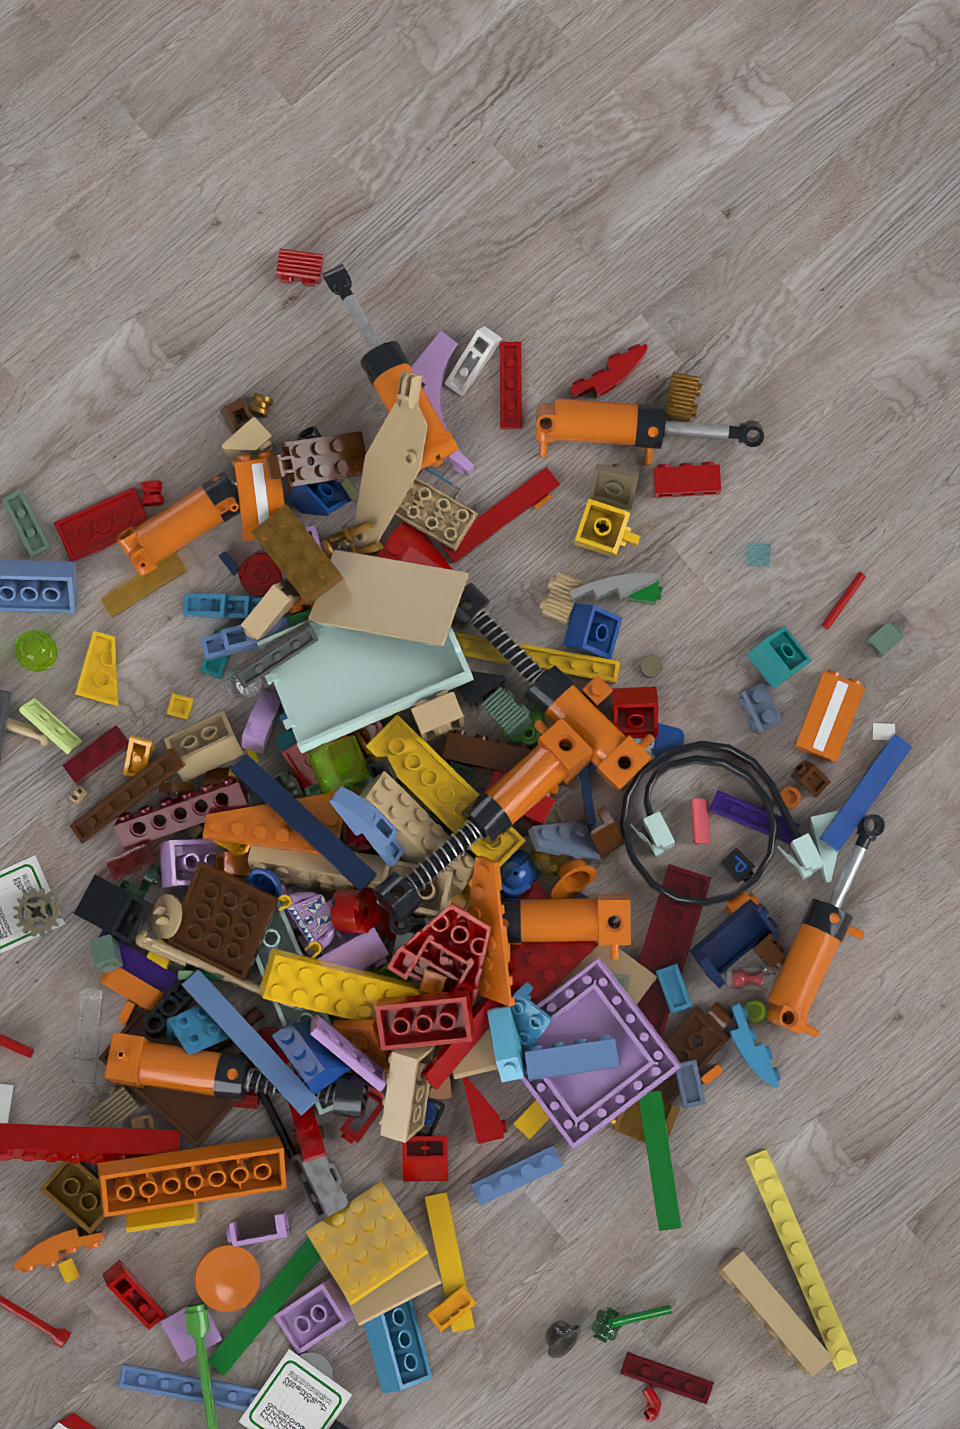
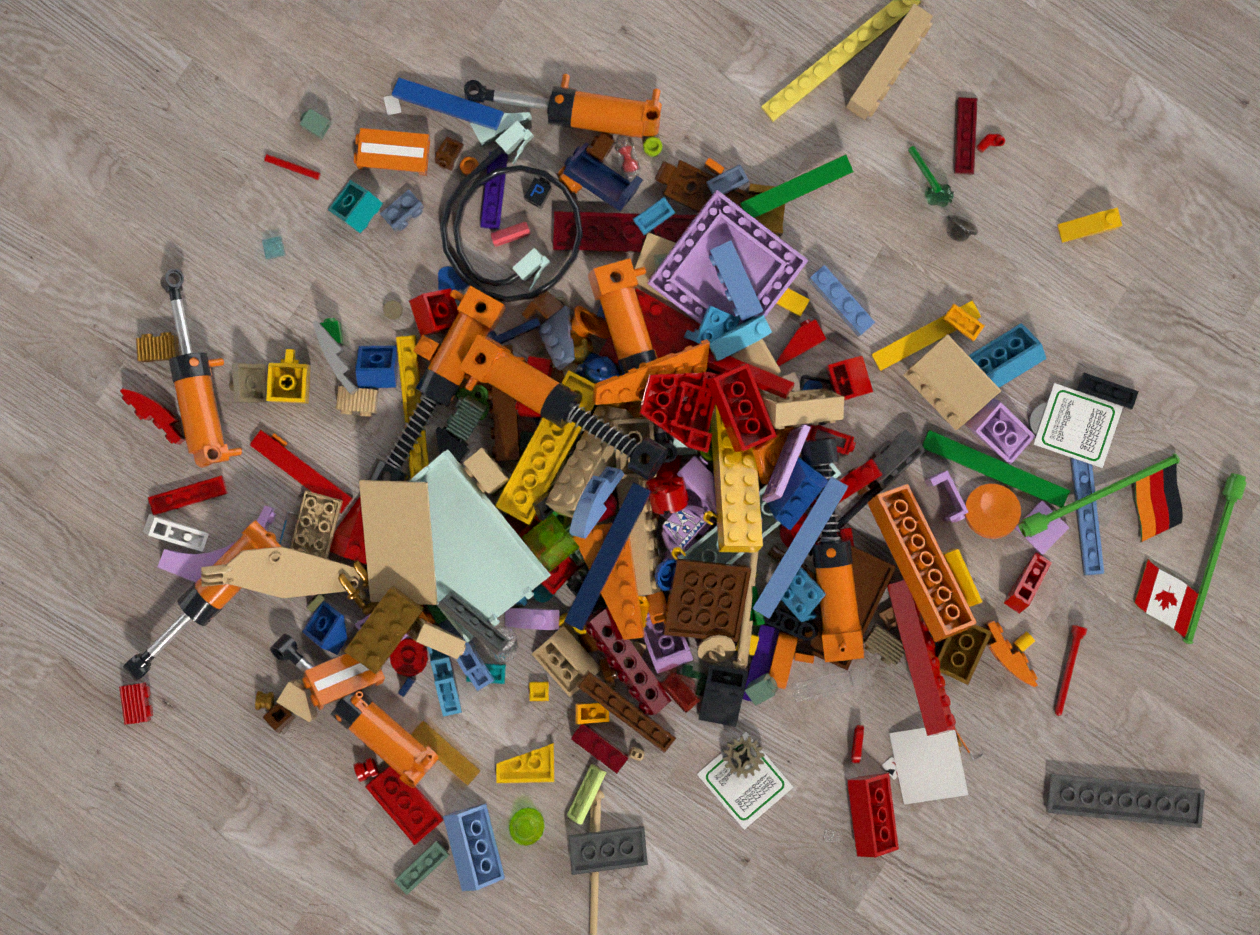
camera: 110 degrees left, 5 degrees up
(331, 456) = (293, 625): reddish brown hinge -> none
(366, 1243) = (932, 405): yellow plate -> none
(432, 981) = (707, 412): orange tile -> none
(686, 480) = (227, 324): red brick -> none
(755, 1055) = (688, 136): dark azure slope -> none

